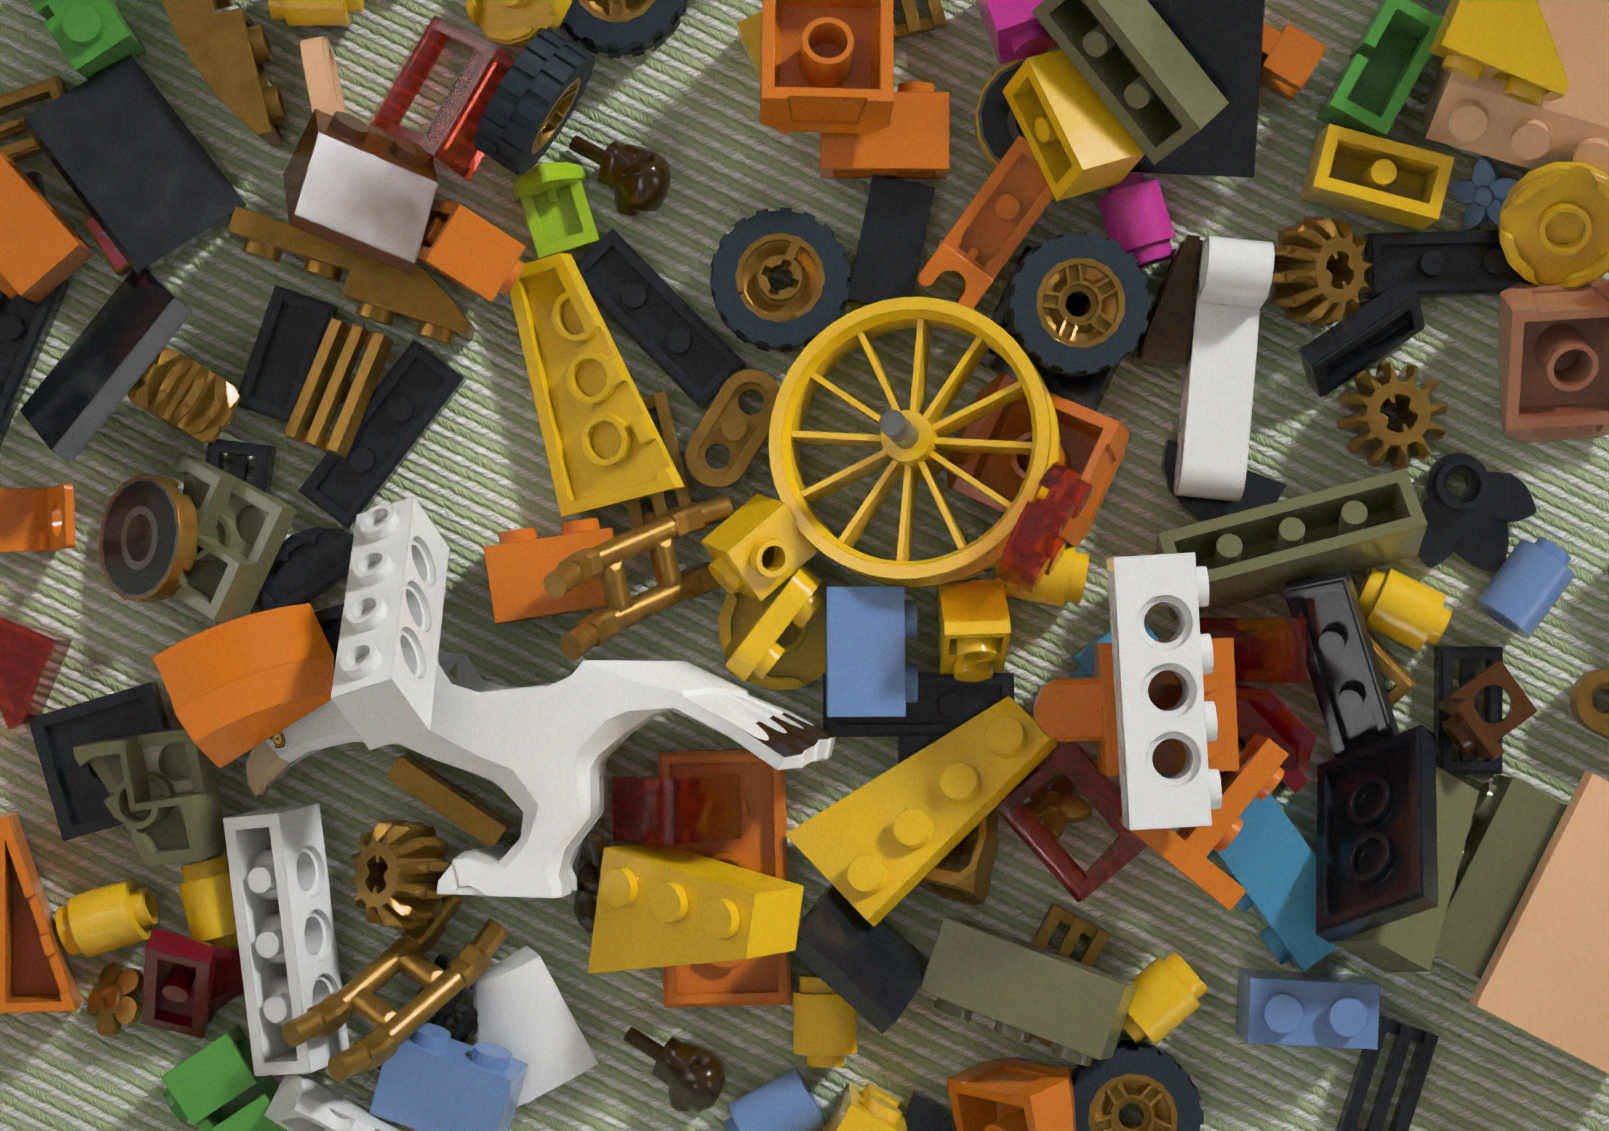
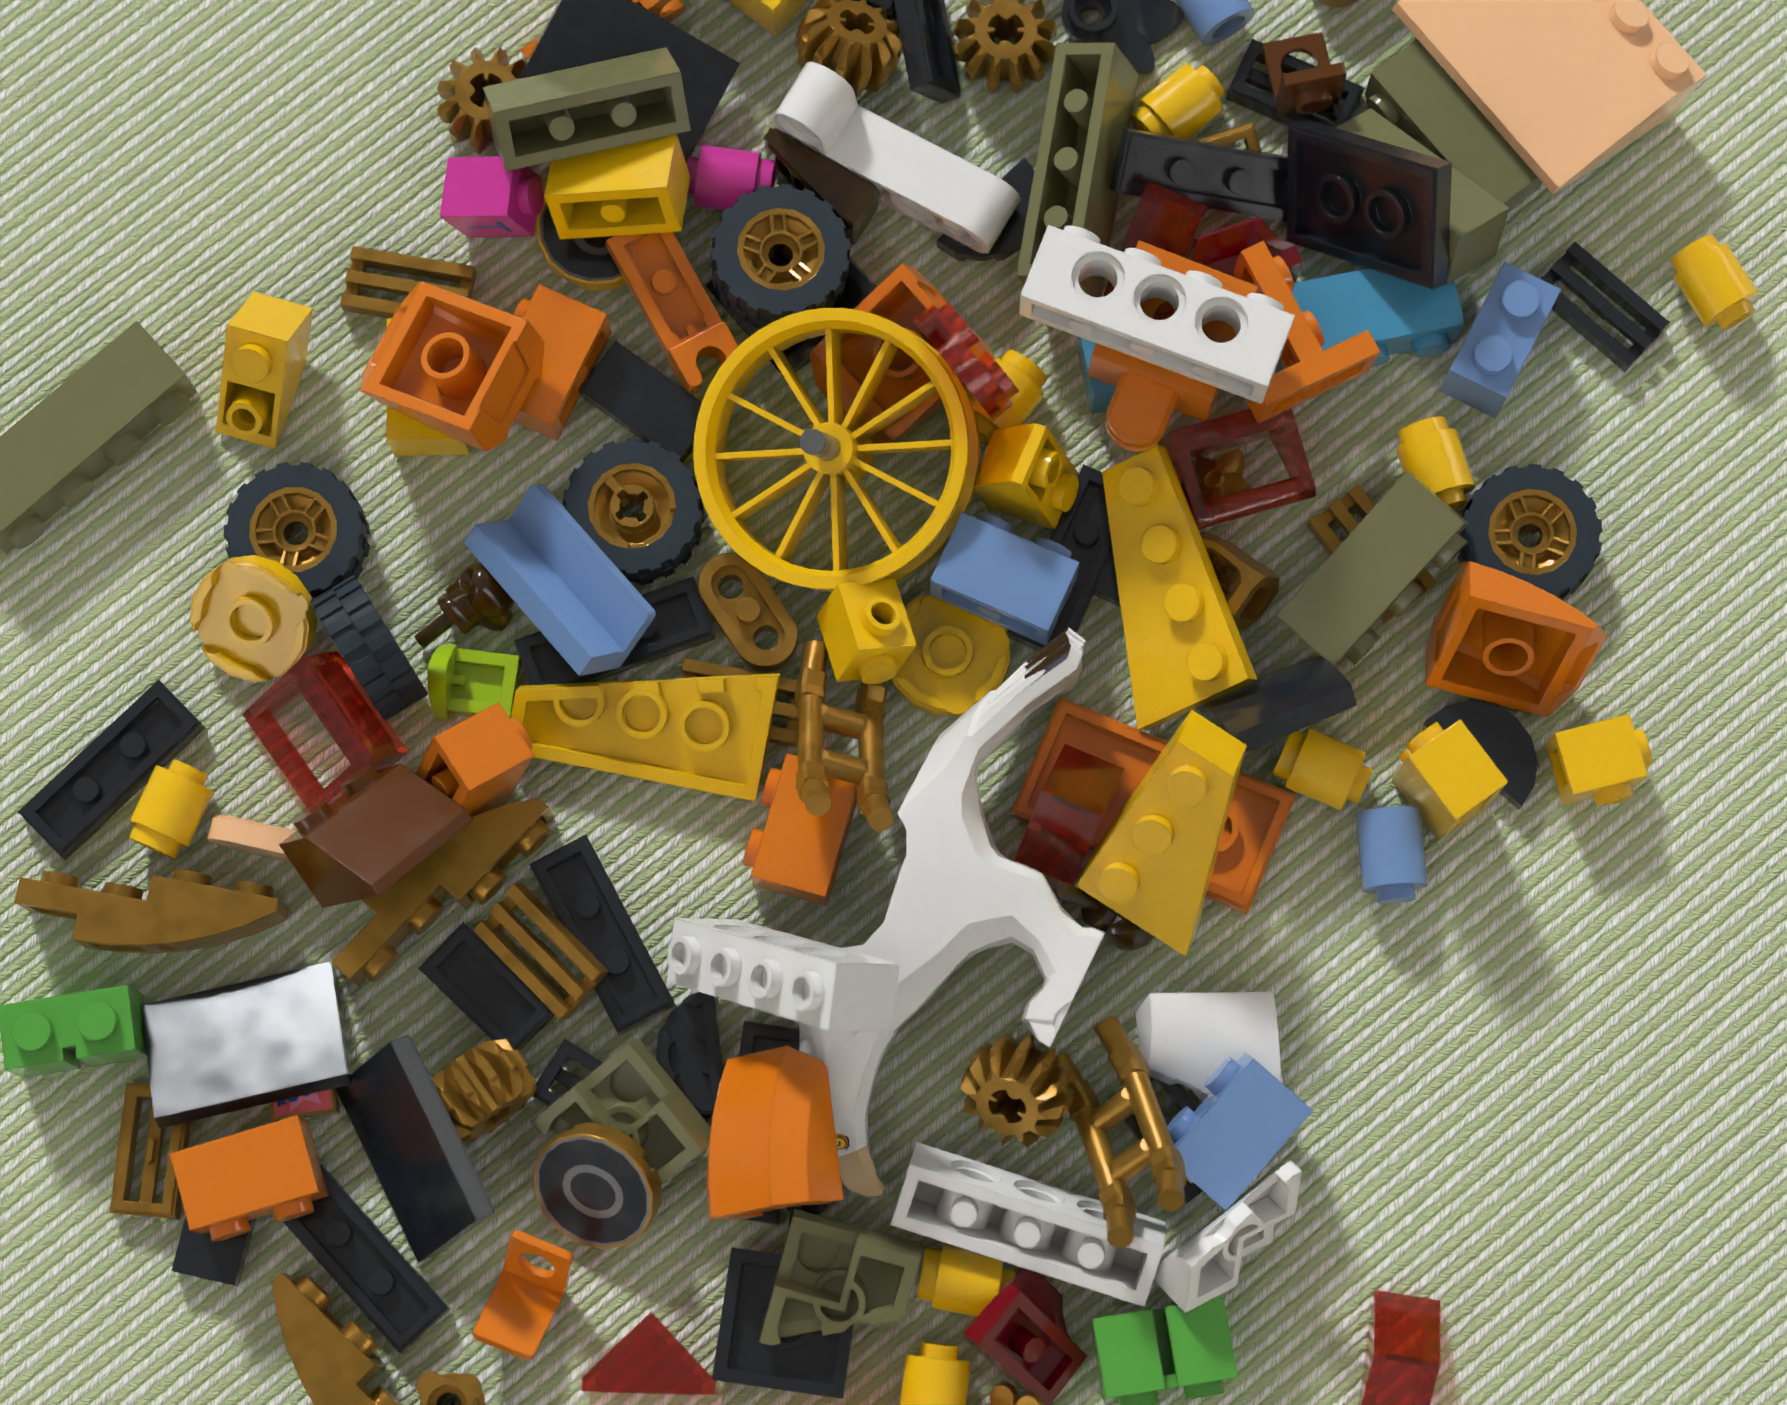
camera: 65 degrees left, 10 degrees down
(449, 800) = (969, 1019): pearl gold tile -> none
(676, 248) = (563, 582): none -> medium blue panel
(690, 1071) = (1319, 913): dark brown piece -> none
(795, 605) = (957, 670): yellow plate -> none

